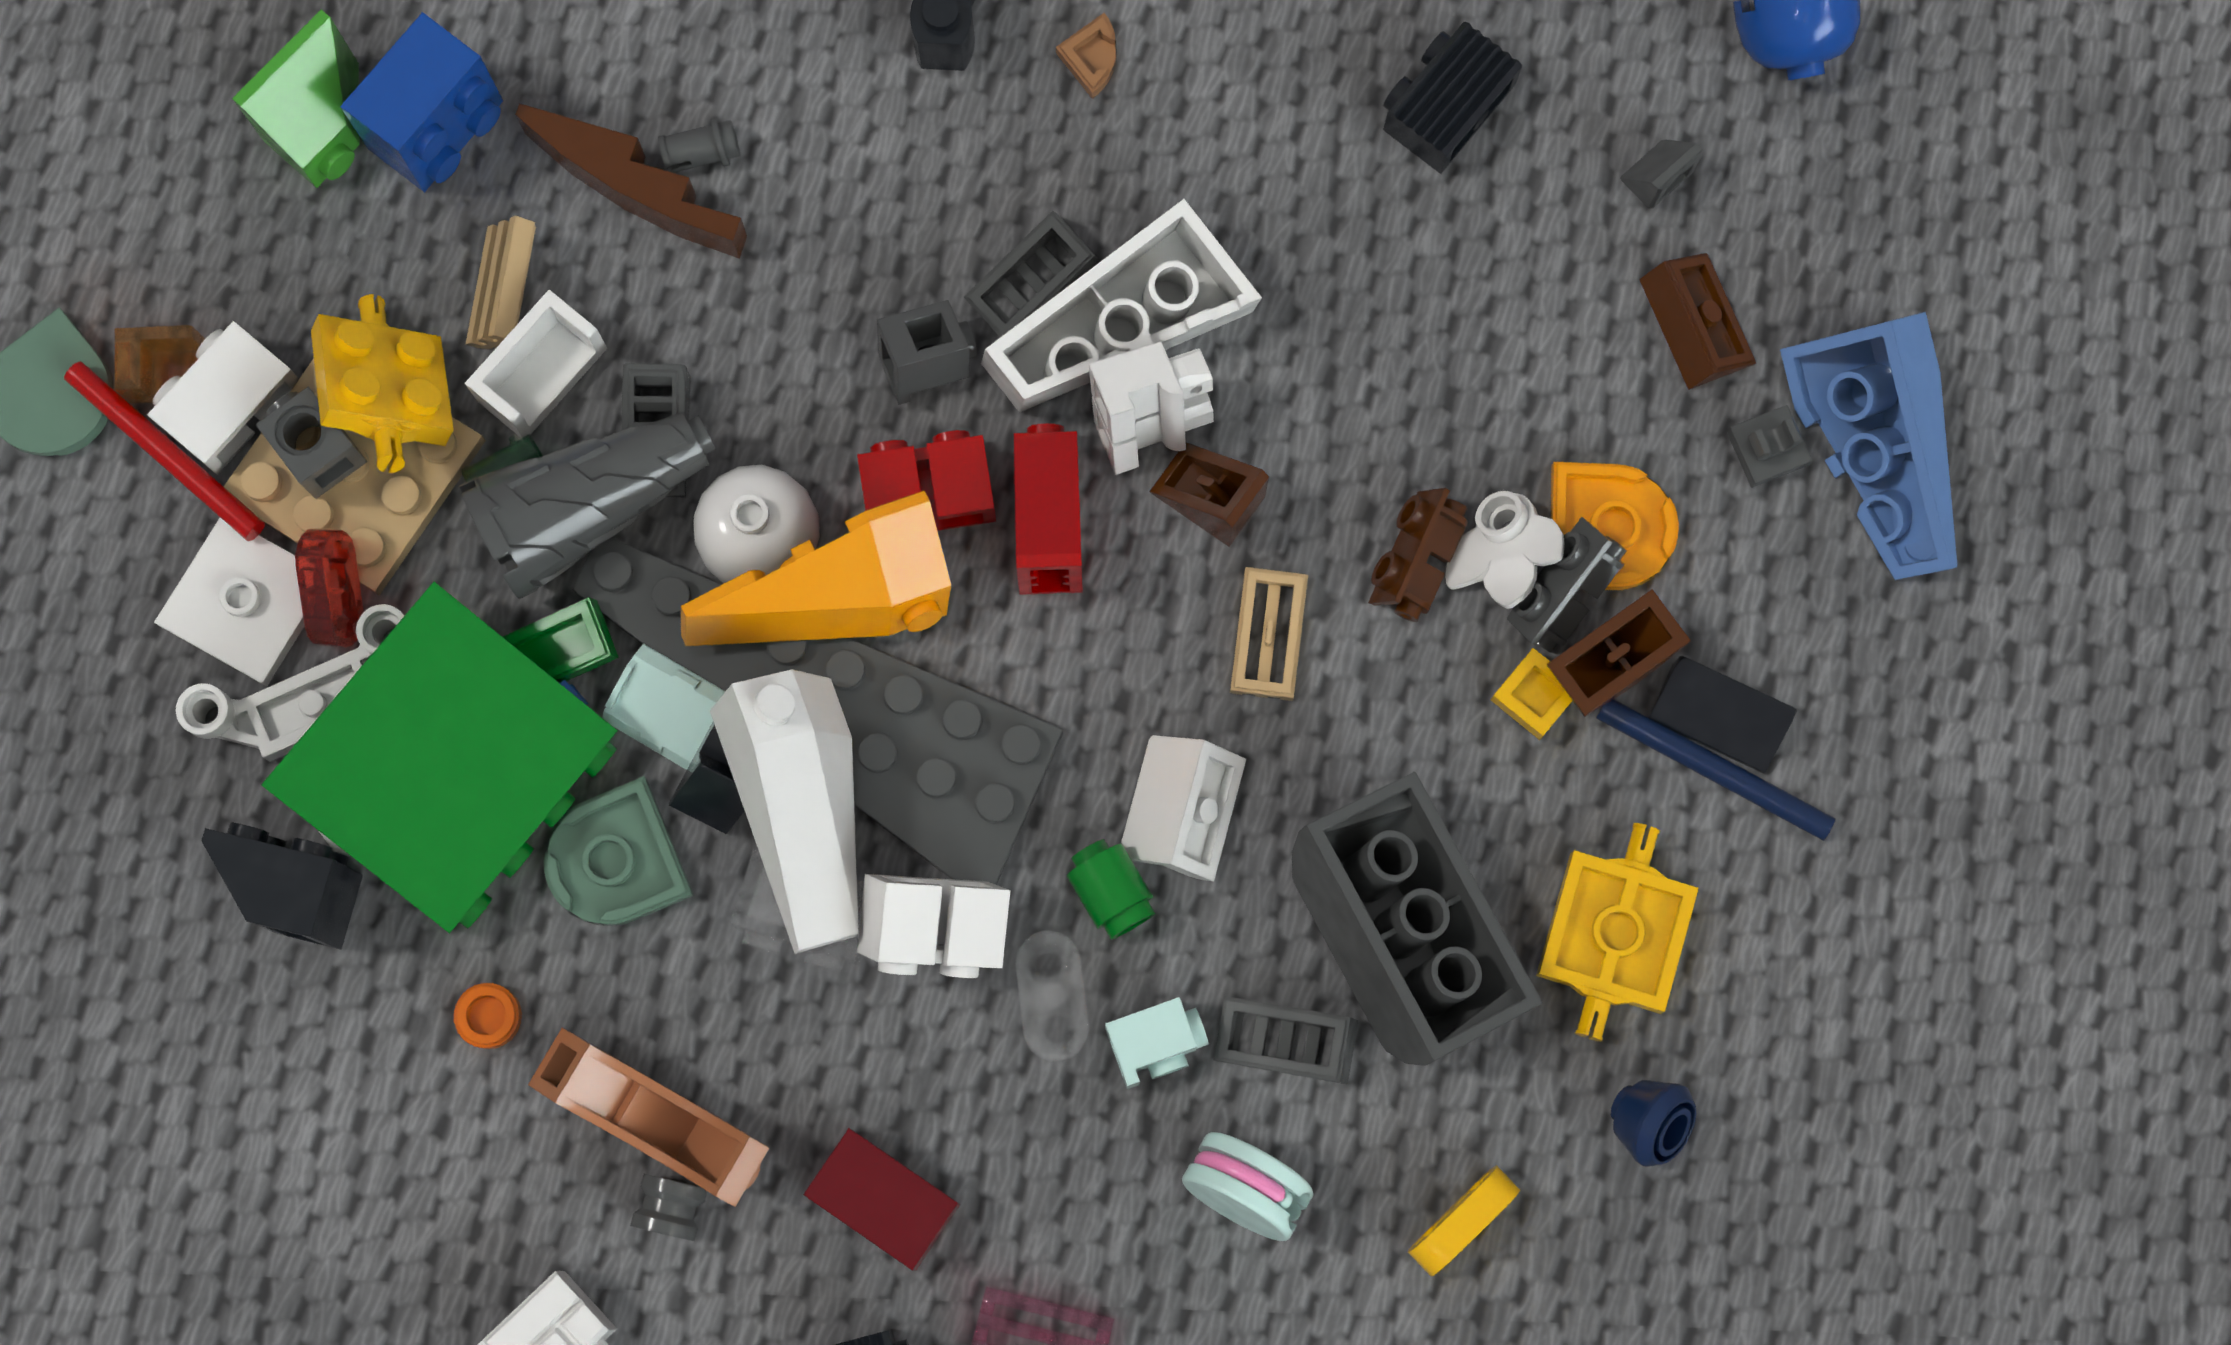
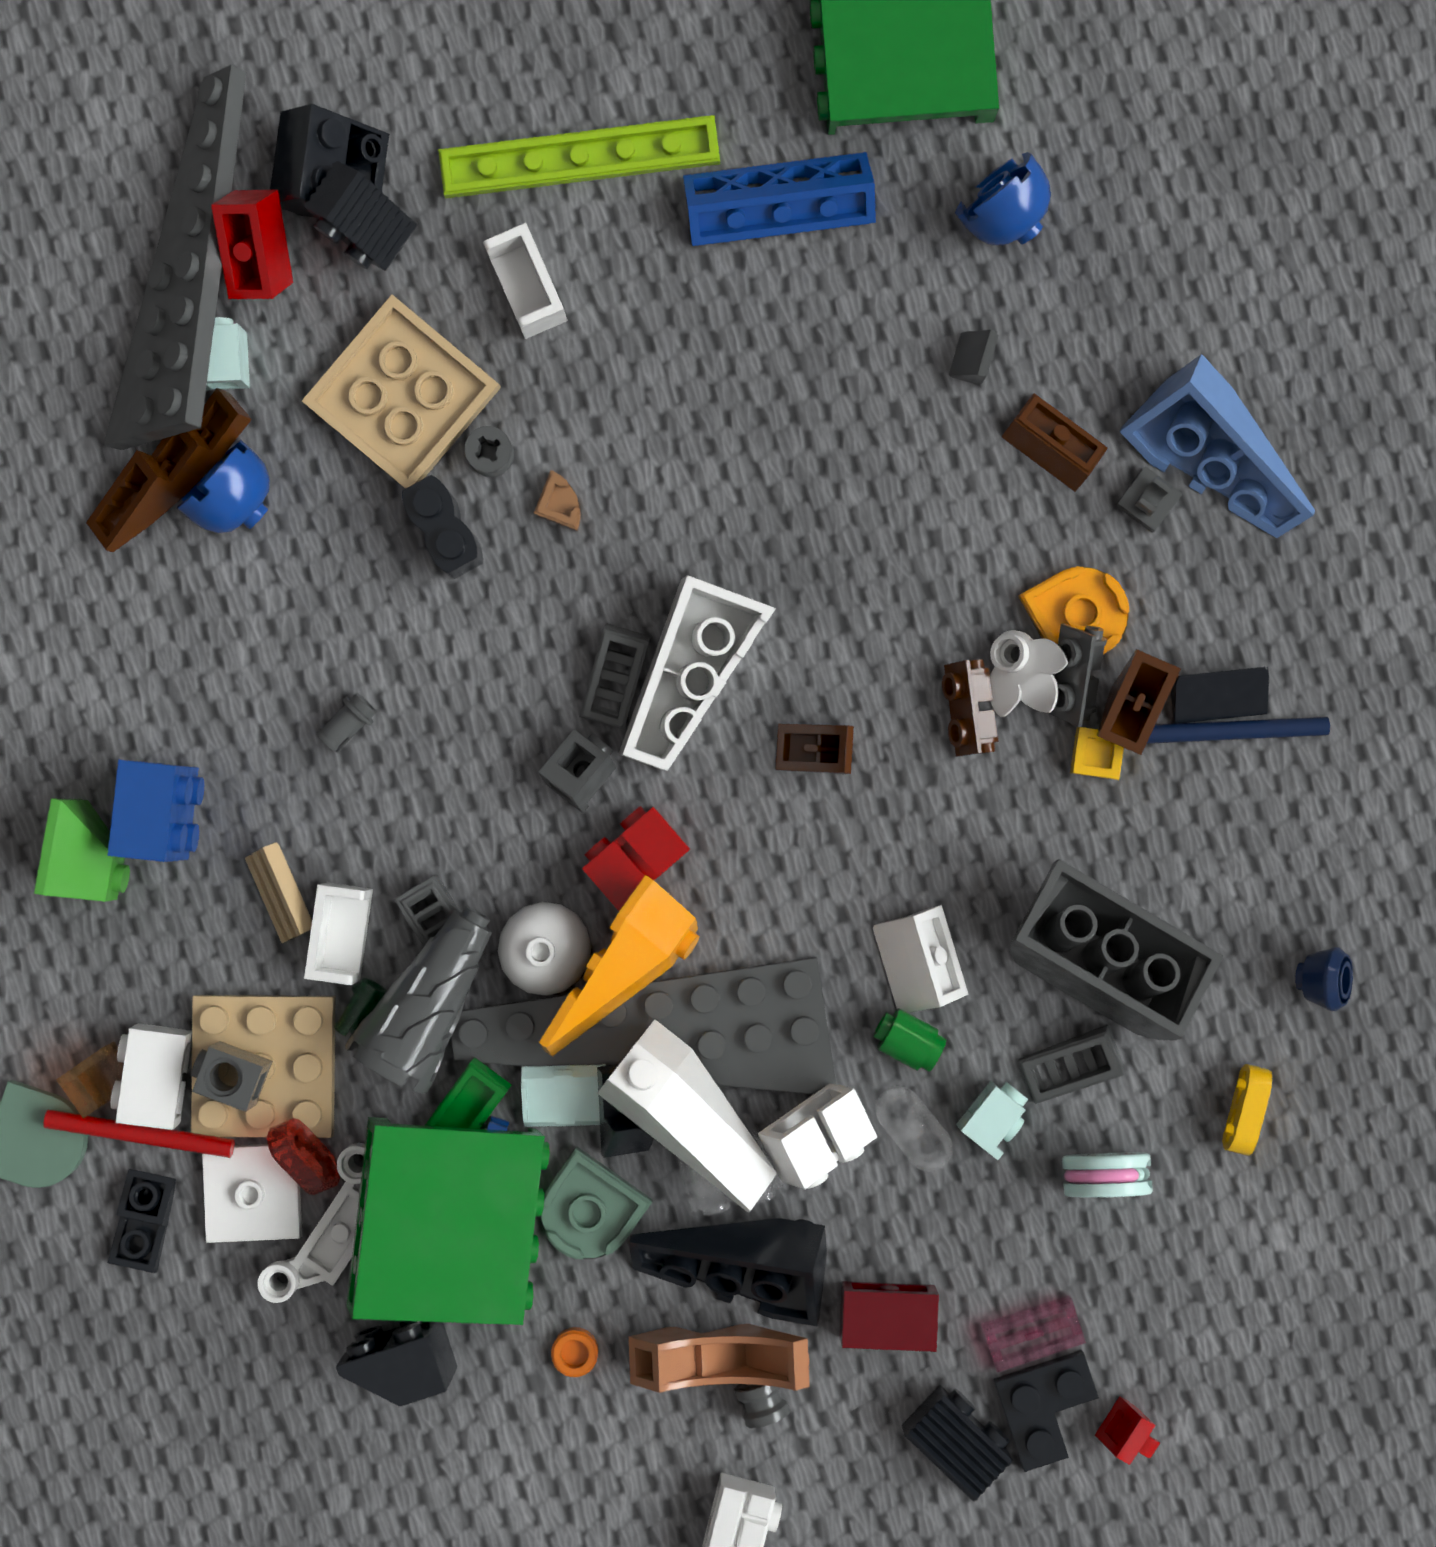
camera: 30 degrees left, 10 degrees up
(105, 552) = (142, 1221): none -> black slope
(381, 382) = (249, 1009): yellow plate -> none
(616, 169) = (303, 772): reddish brown slope -> none
(773, 1039) = (760, 1259): none -> black wedge
(1047, 510) = (722, 826): red slope -> none
(1148, 400) = (743, 717): white hips -> none
(1262, 686) = (922, 852): tan tile -> none
(1451, 95) = (811, 390): black brick -> none
(1617, 932) = (1236, 873): yellow plate -> none

